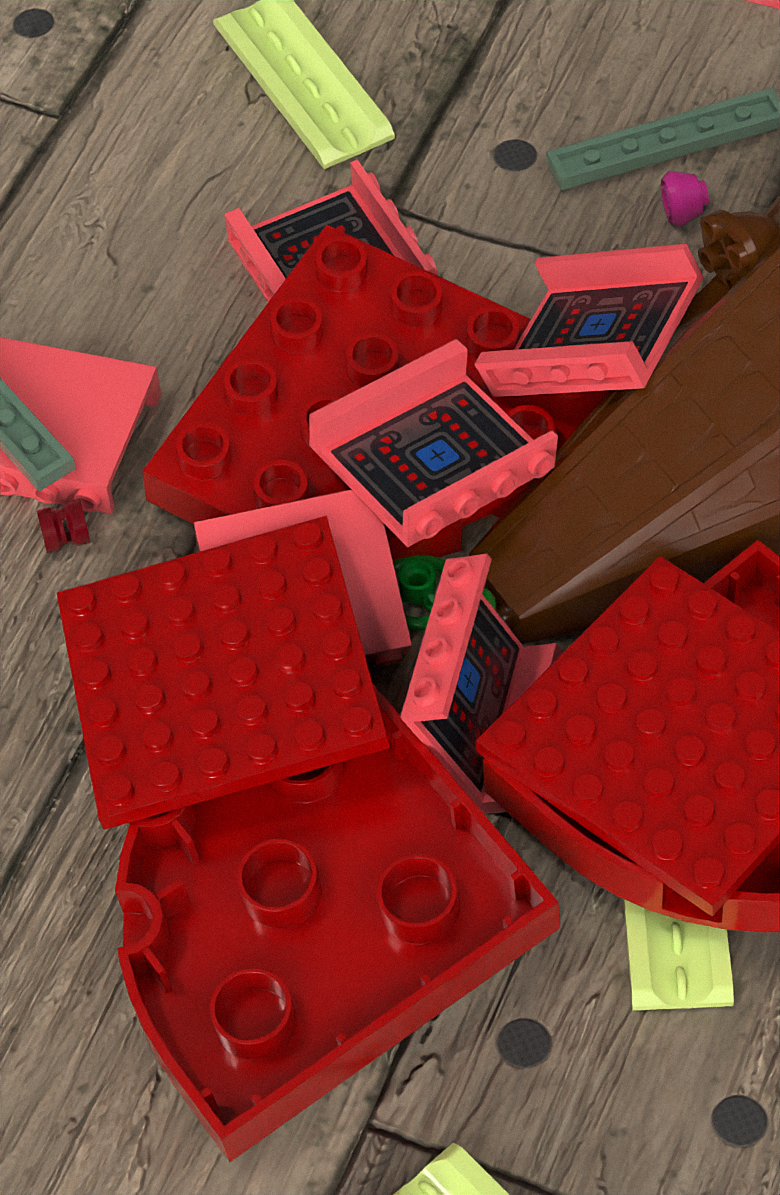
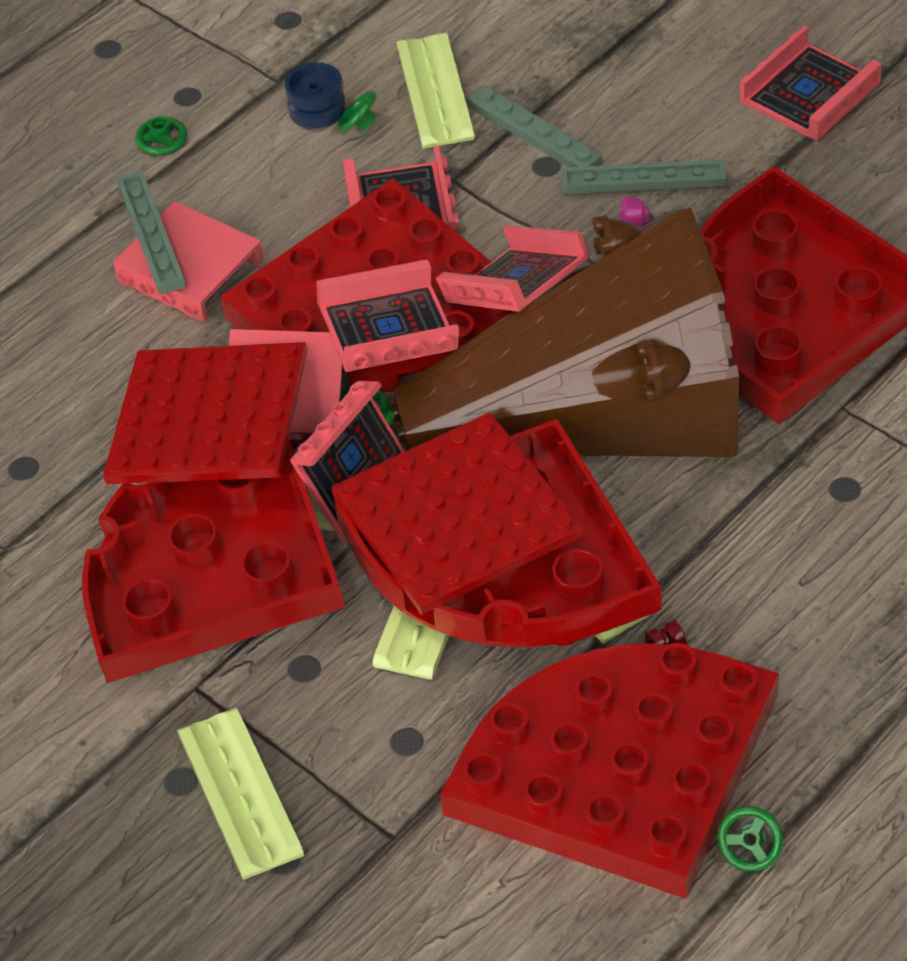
camera: 20 degrees right, 5 degrees down
(53, 528) = (169, 320): dark red wheel -> none
(135, 125) = (315, 95): none -> dark blue wheel
(215, 138) = (359, 113): none -> green piece
(473, 105) = (532, 129): none -> sand green plate

